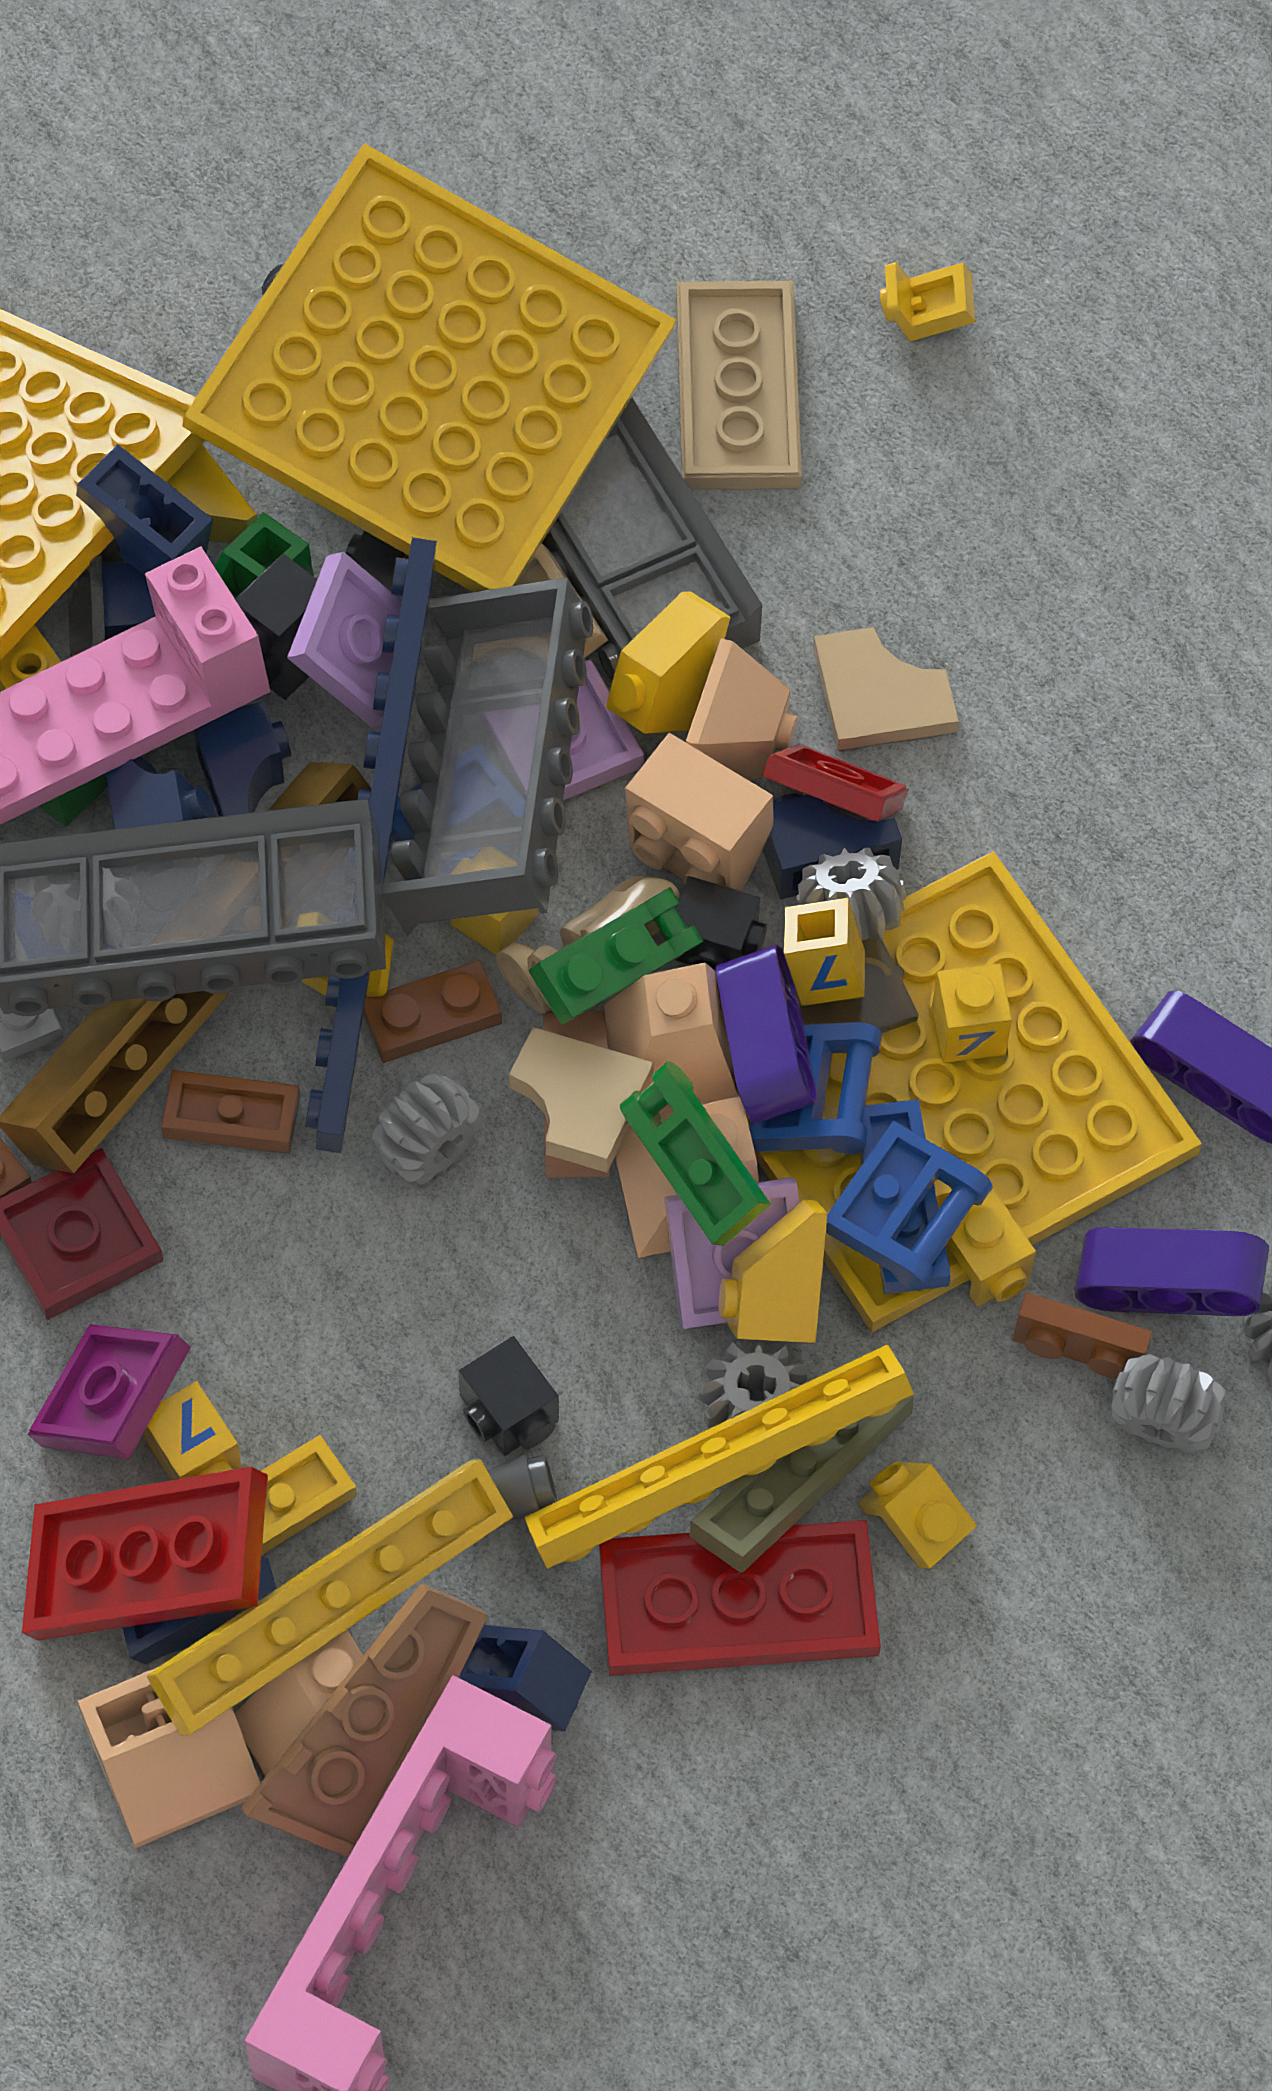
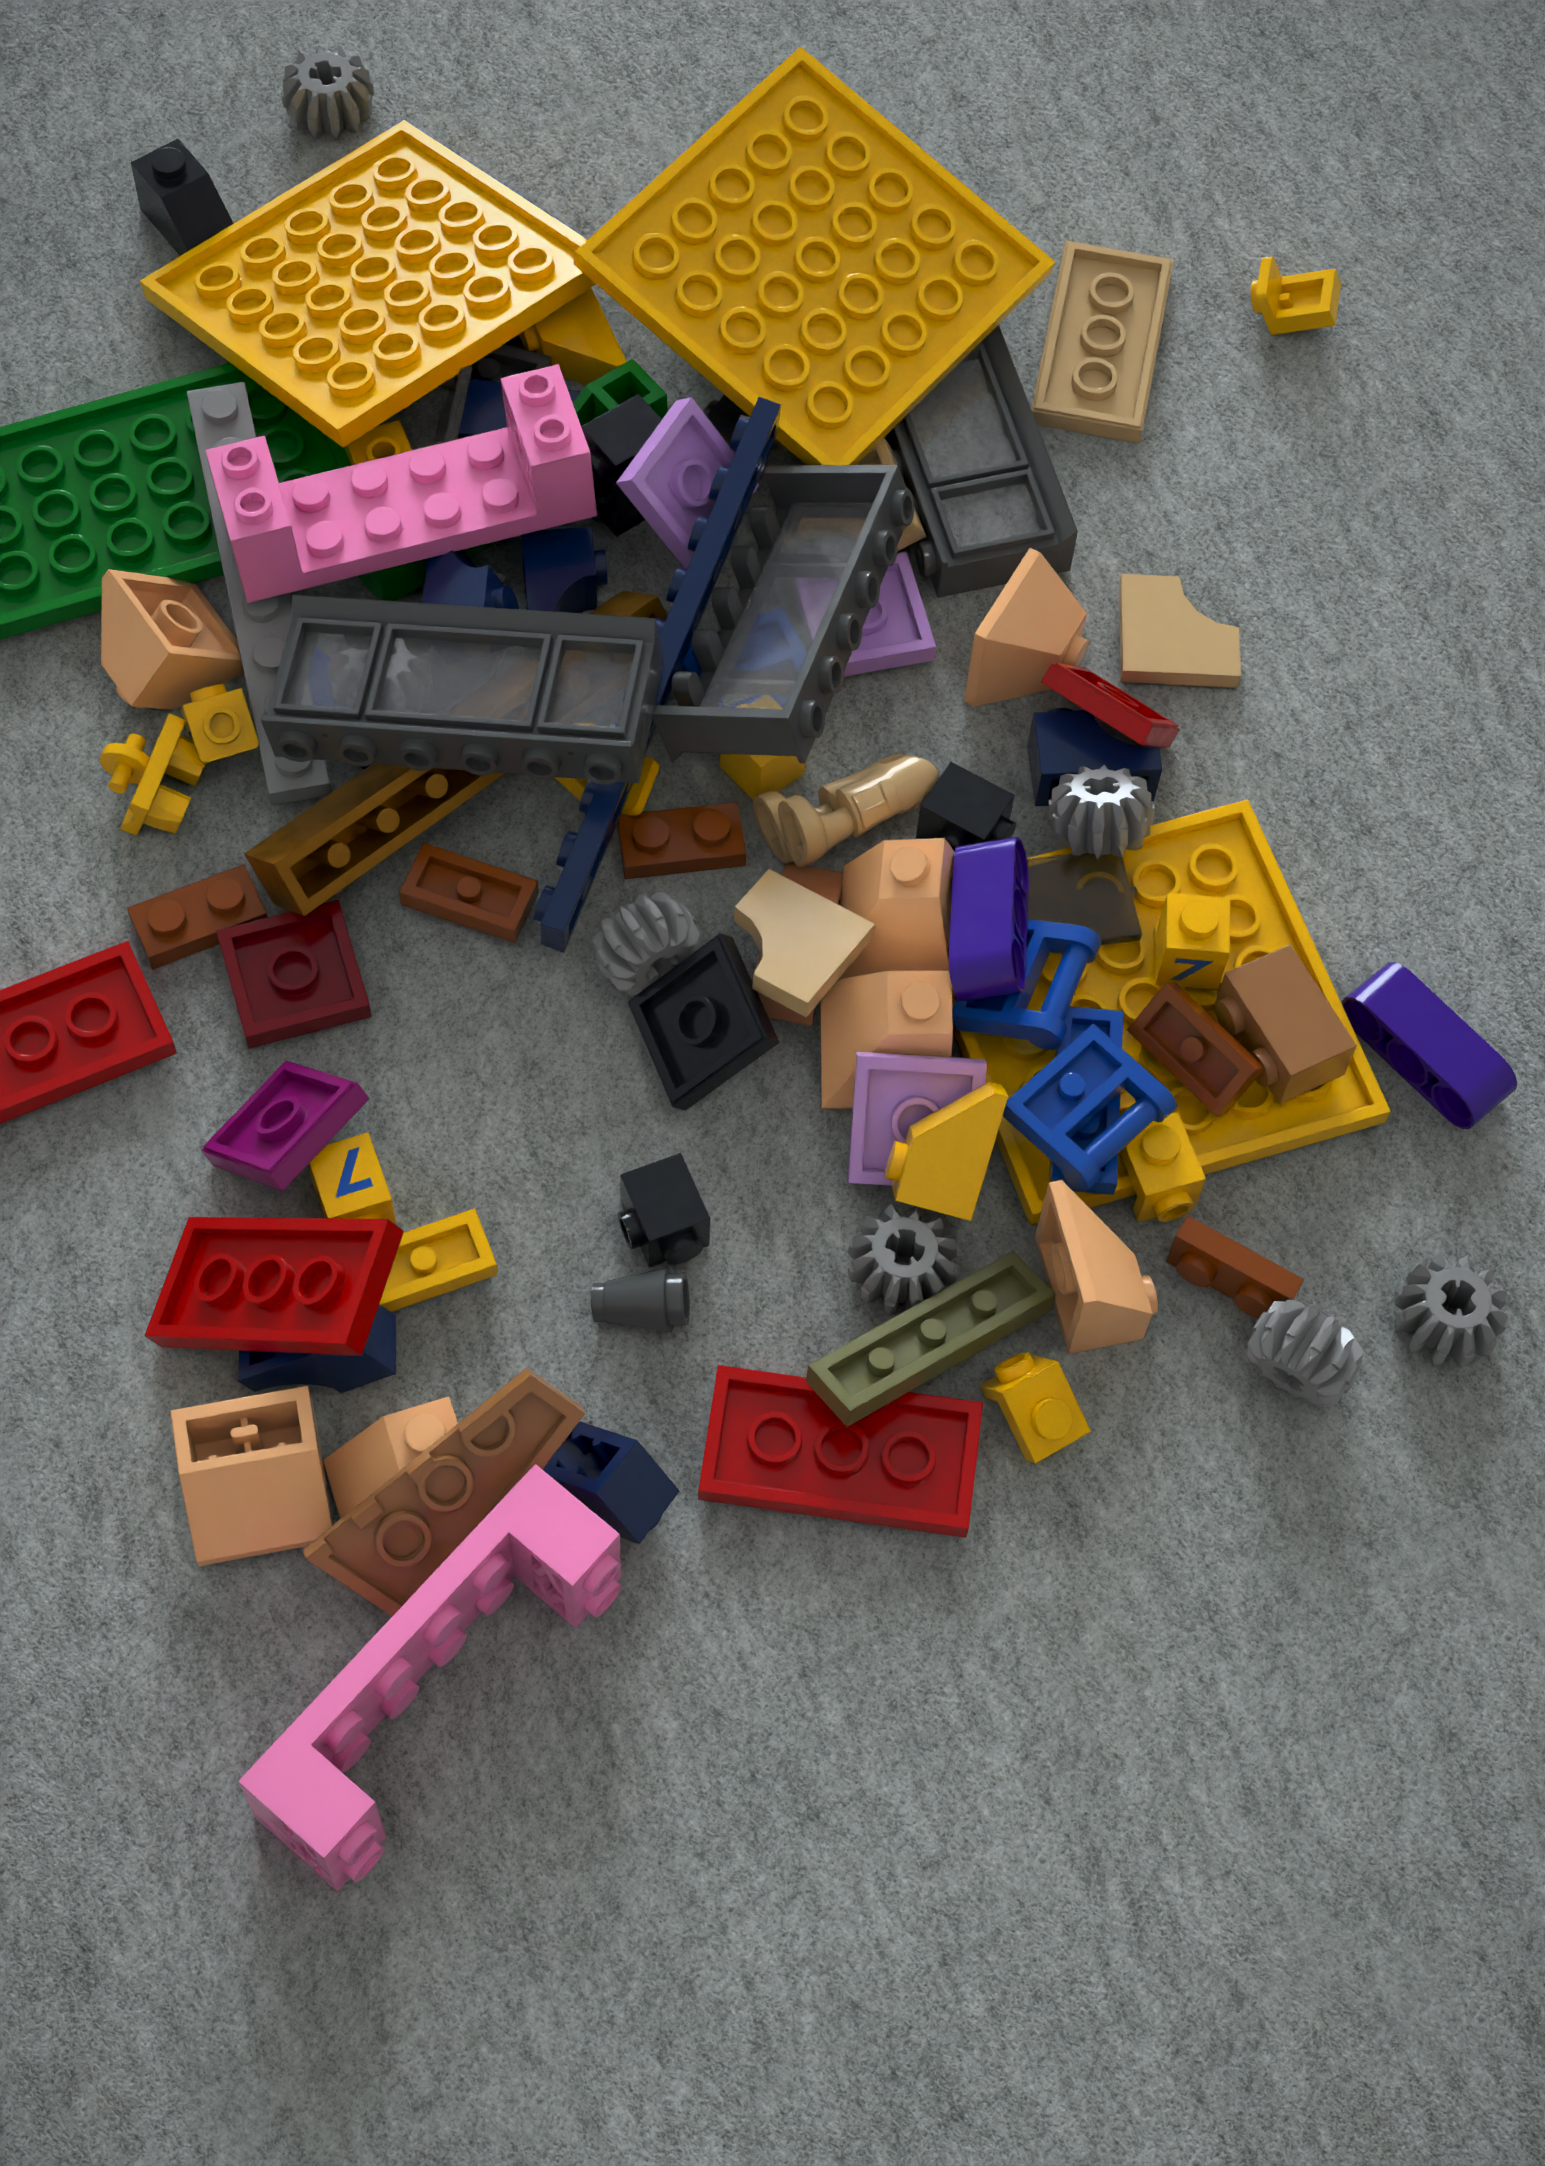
camera: 10 degrees right, 0 degrees up
(143, 511) = (517, 327): dark blue arch -> none
(329, 1597) = (436, 1363): yellow plate -> none
(502, 1197) = (703, 1022): none -> black plate
(613, 957) = (860, 818): green plate -> none
(668, 666) = (974, 566): yellow slope -> none
(694, 1155) = (892, 1016): green plate -> none
(696, 816) = (971, 707): light nougat slope -> none
(718, 1456) = (850, 1308): yellow plate -> none
(824, 952) = (1063, 854): yellow brick -> none
(949, 1369) = (1093, 1273): none -> light nougat slope
(997, 1122) = (1195, 1049): none -> dark orange plate
(1079, 1079) = (1284, 1024): none -> medium nougat brick
(1172, 1271) = (1336, 1226): dark purple beam -> none

